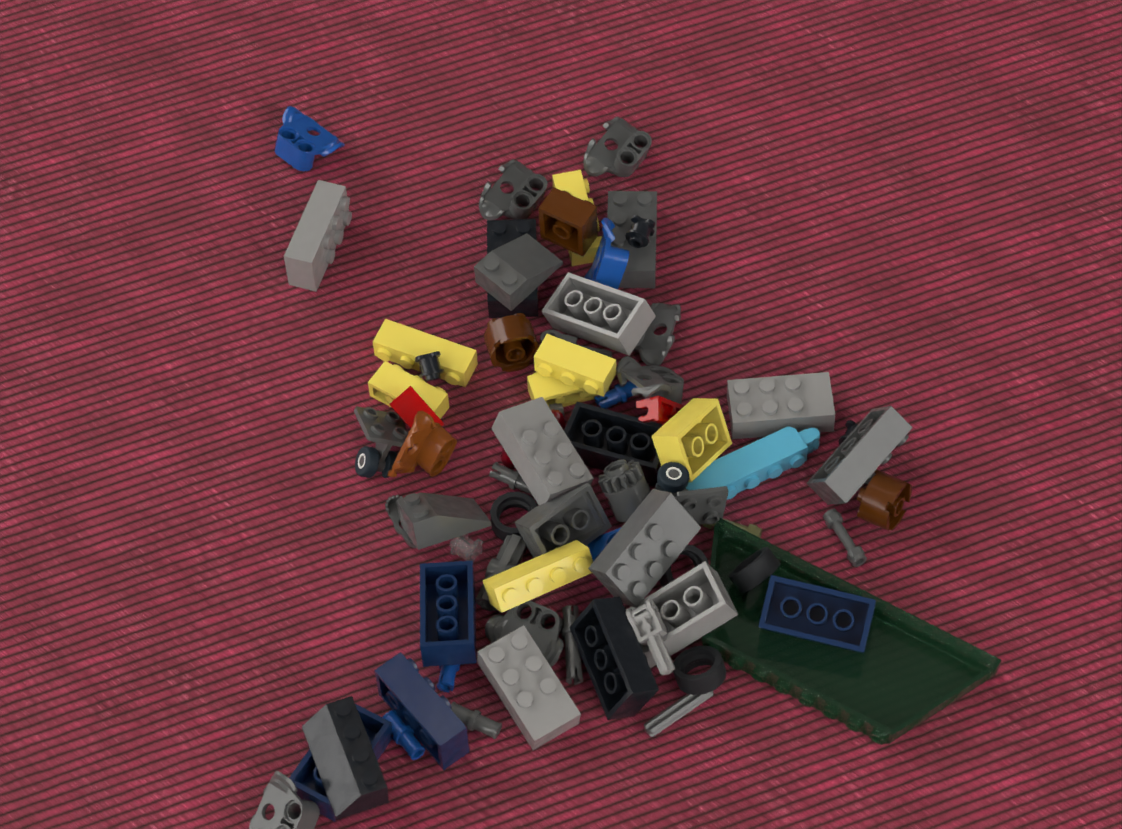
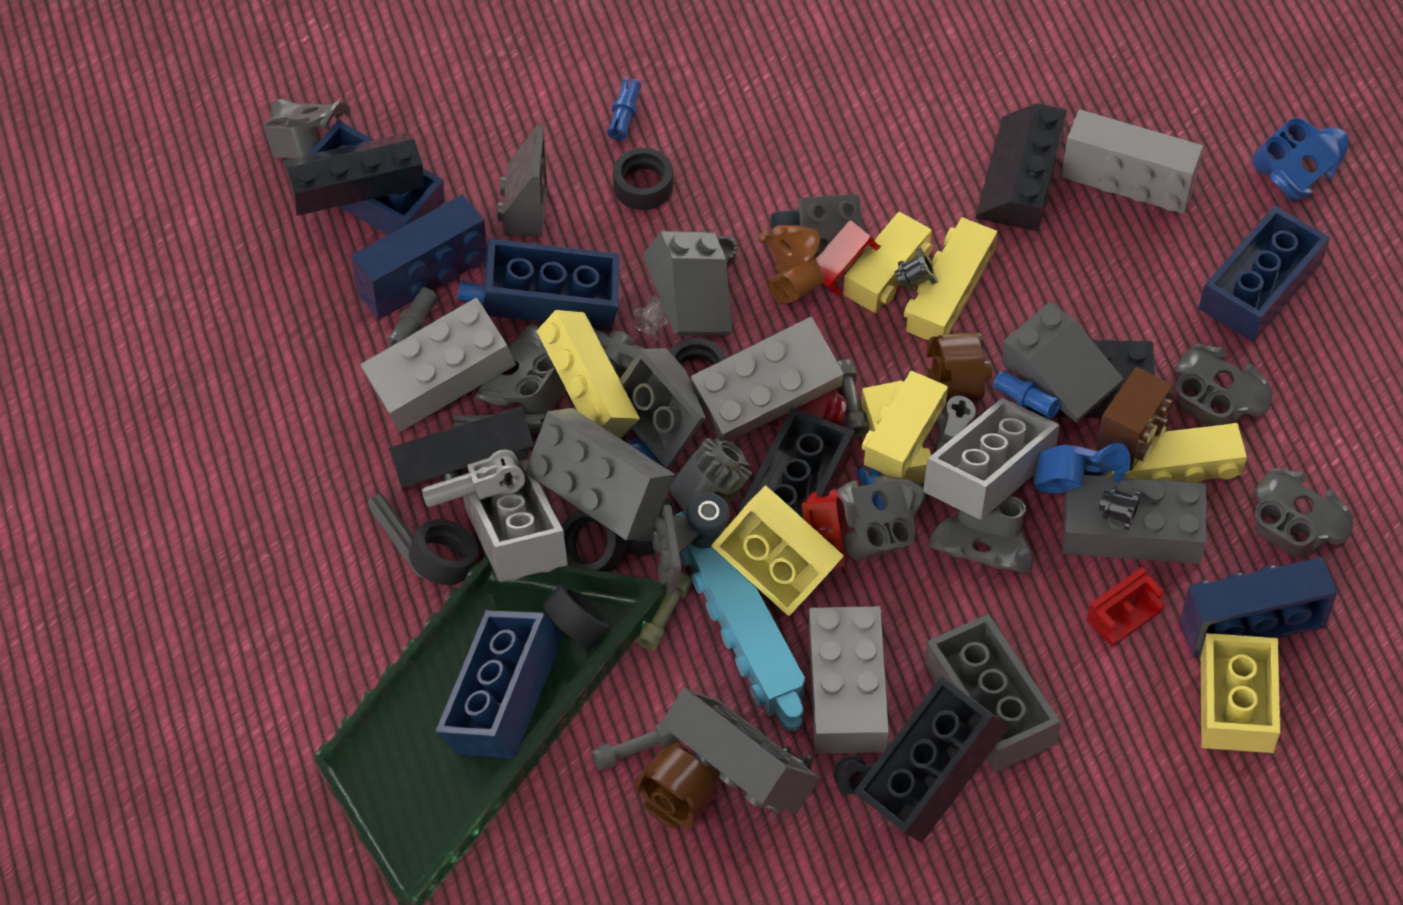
camera: 90 degrees right, 0 degrees up
(255, 584) = (624, 109): none -> blue pin
(314, 309) = (1022, 166): none -> black slope
(323, 548) = (643, 159): none -> black tyre
(350, 634) = (525, 188): none -> dark grey slope
(415, 160) = (1263, 273): none -> dark blue brick
(543, 291) = (1027, 394): none -> blue pin
(701, 247) = (1126, 607): none -> red hinge
(703, 166) = (1260, 603): none -> dark blue brick
(769, 178) = (1240, 693): none -> light yellow brick
(783, 318) = (990, 673): none -> dark grey brick
(852, 341) = (931, 759): none -> black slope
(857, 398) = (843, 771): none -> black brick

